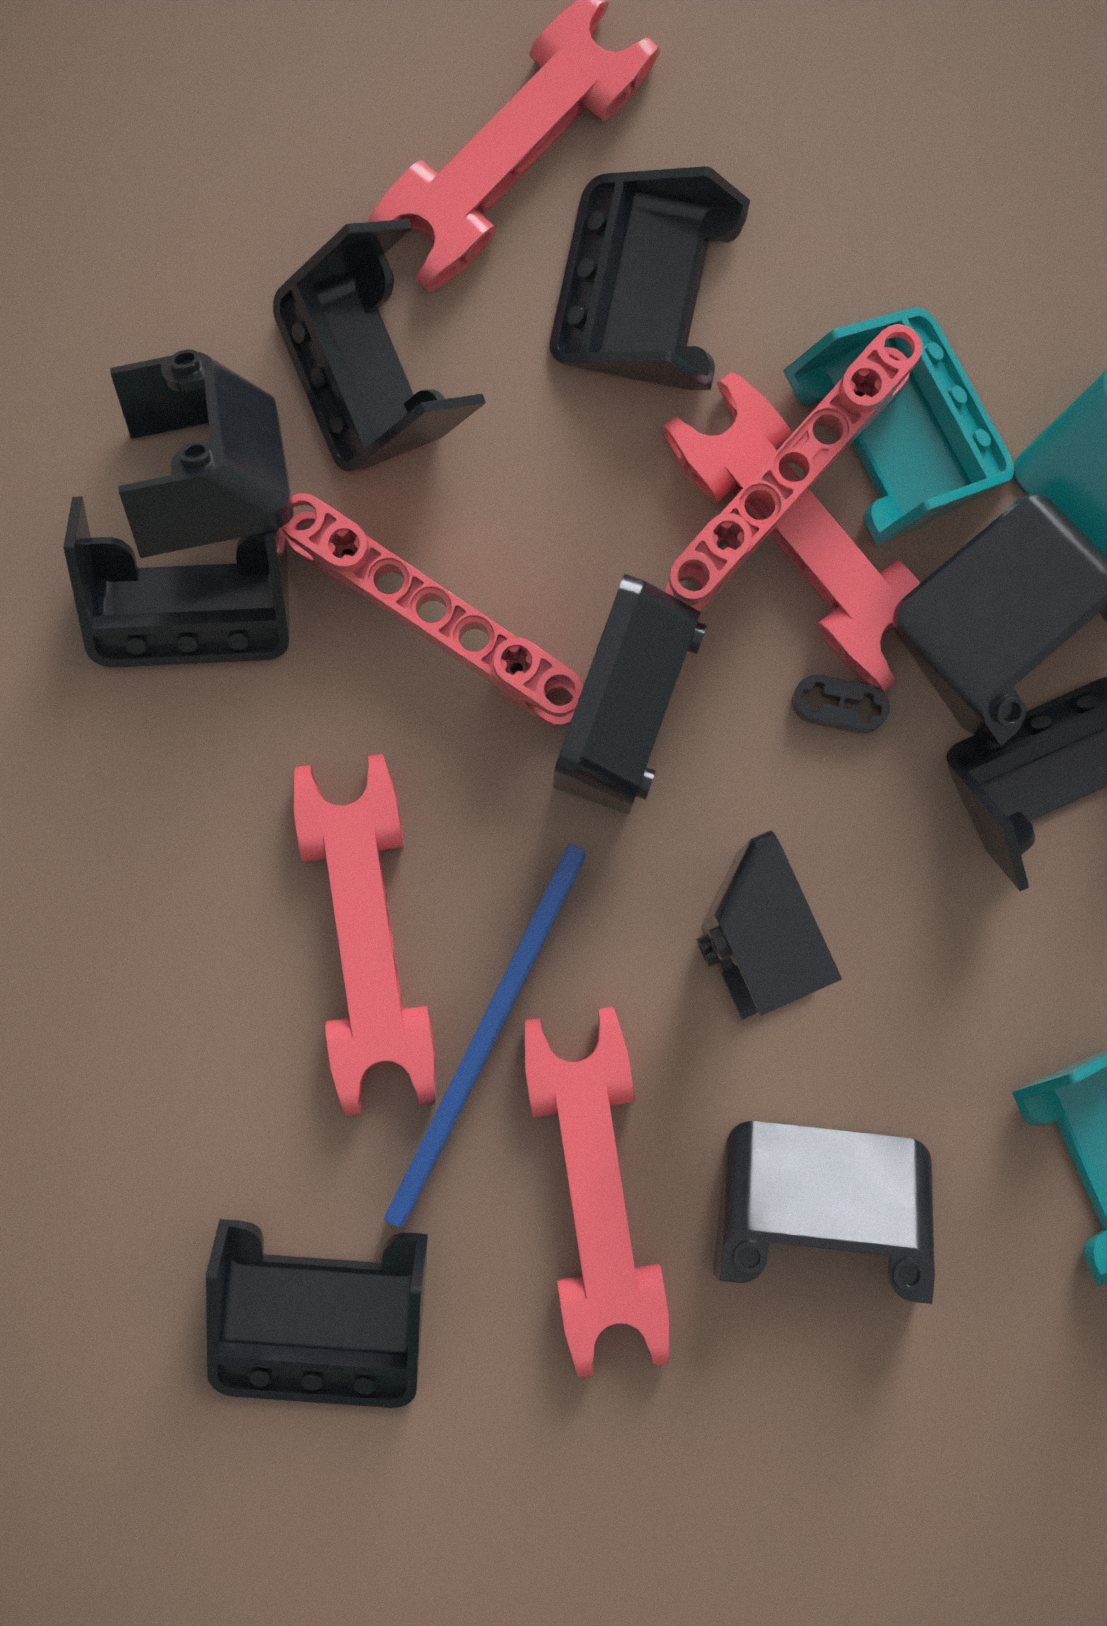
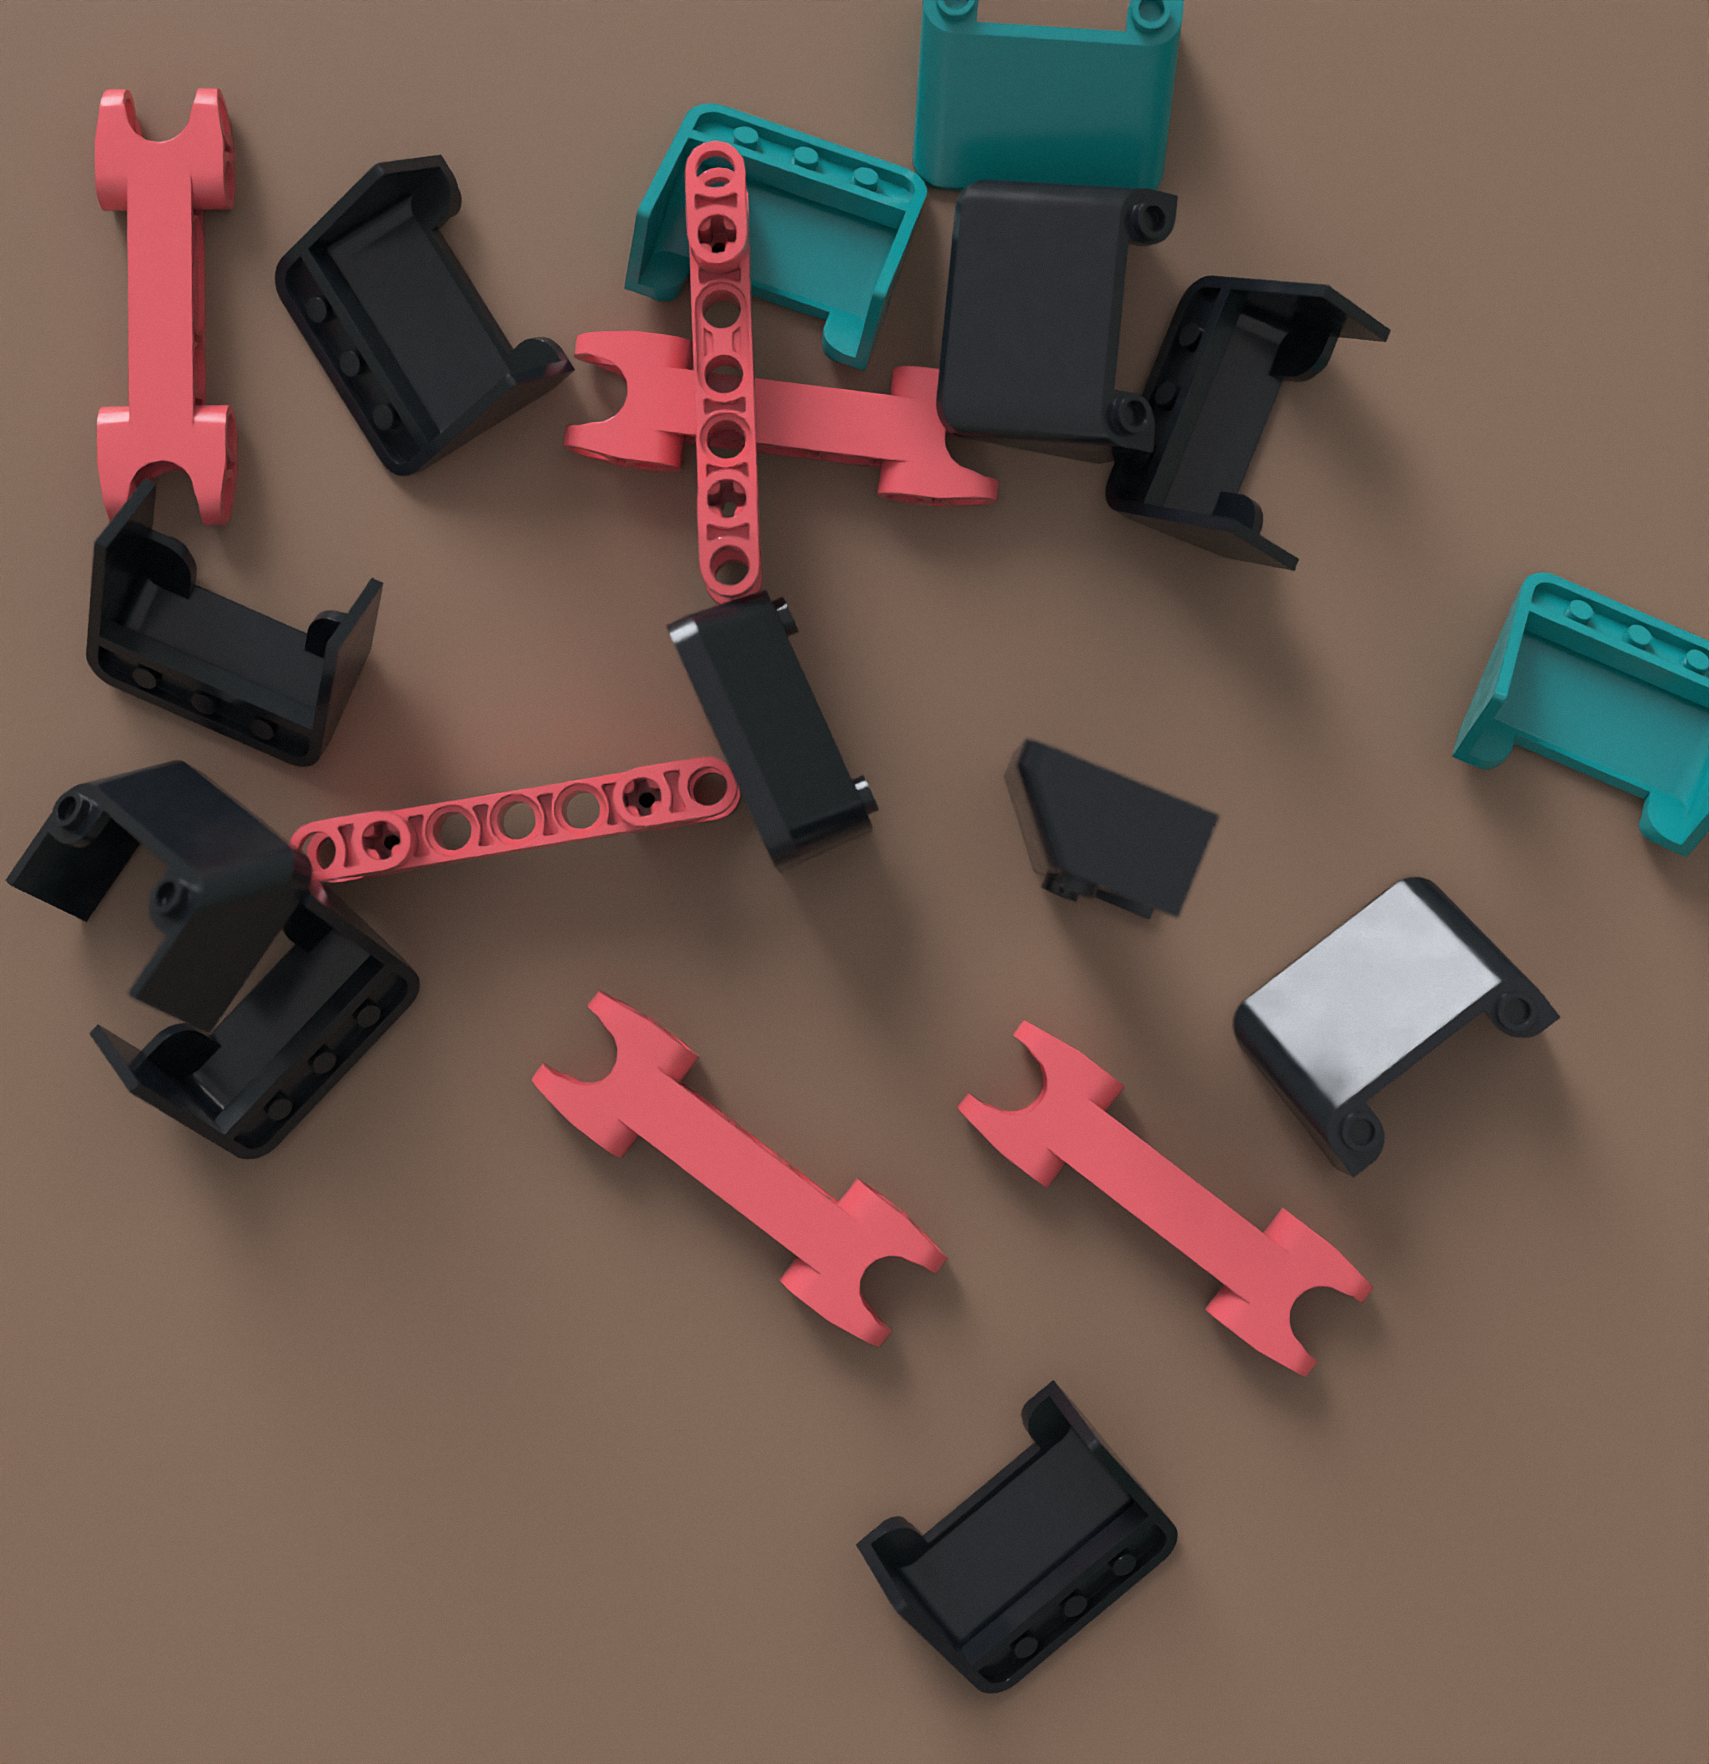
camera: 45 degrees left, 5 degrees up
(485, 1036) = (936, 1156): blue tile -> none
(843, 692) = (959, 535): black beam -> none

